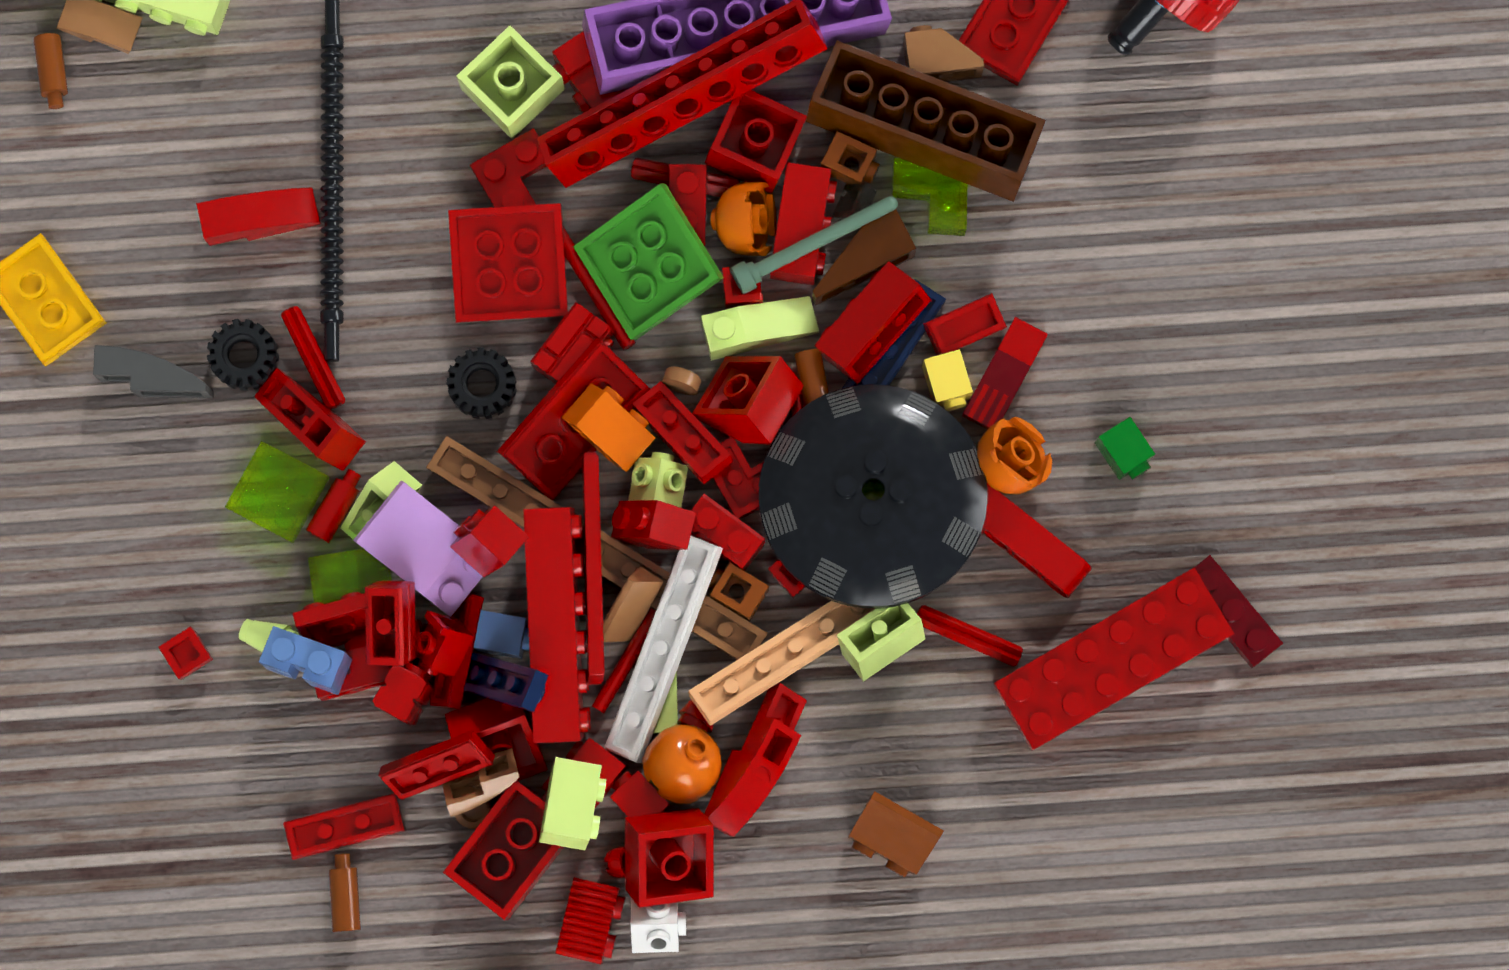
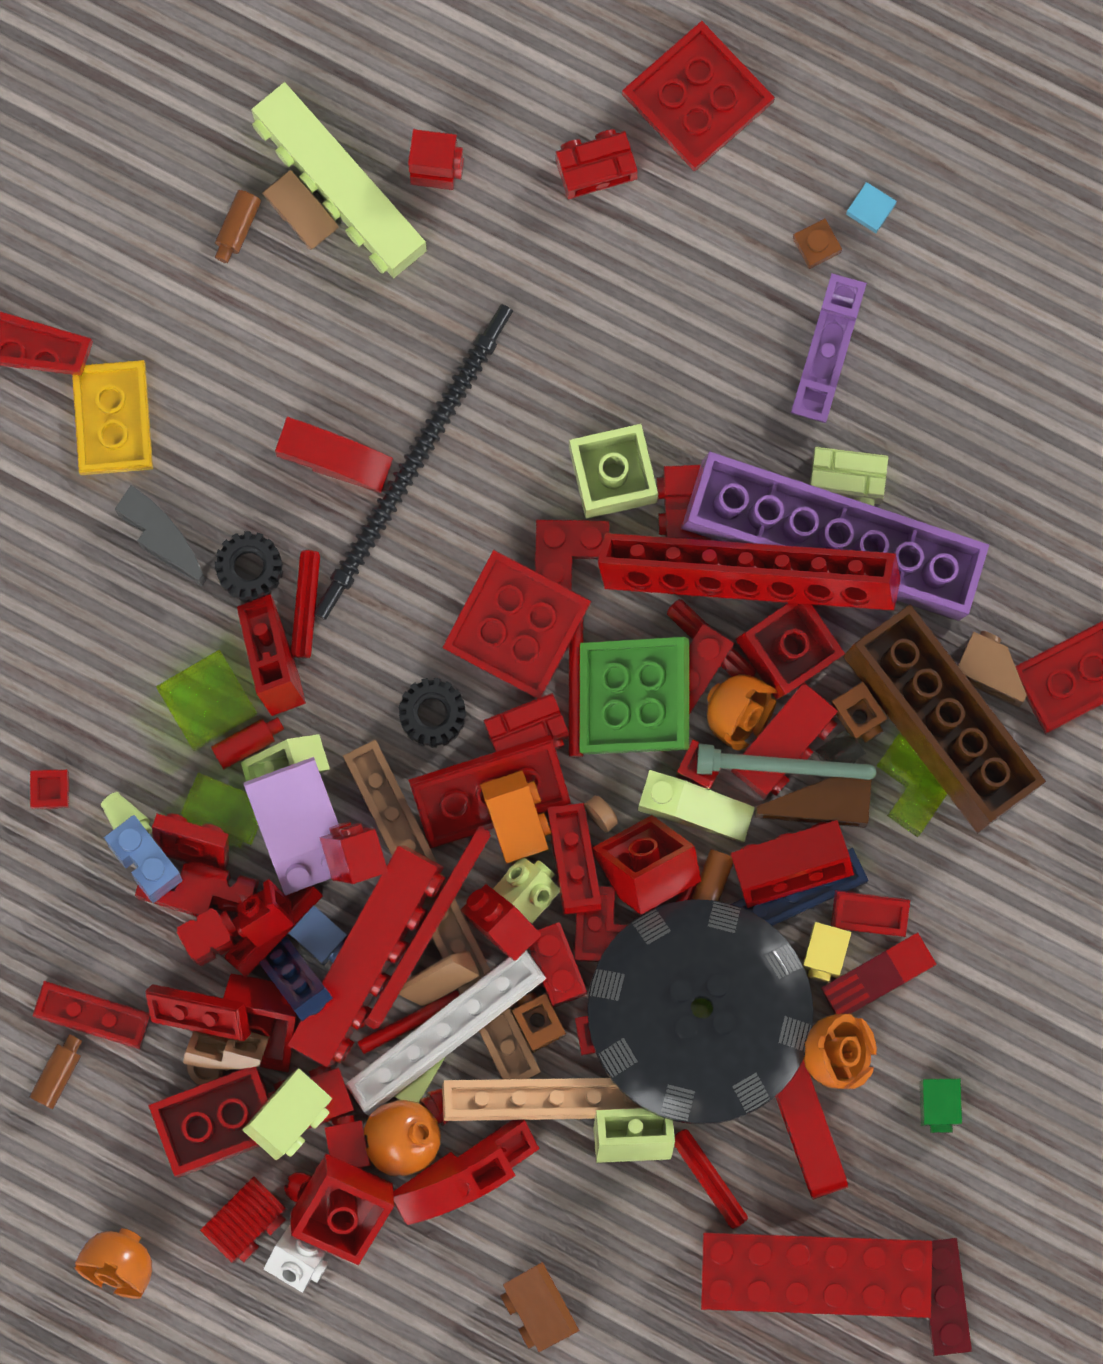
camera: 30 degrees right, 0 degrees up
(390, 623) = (231, 871): red brick -> none

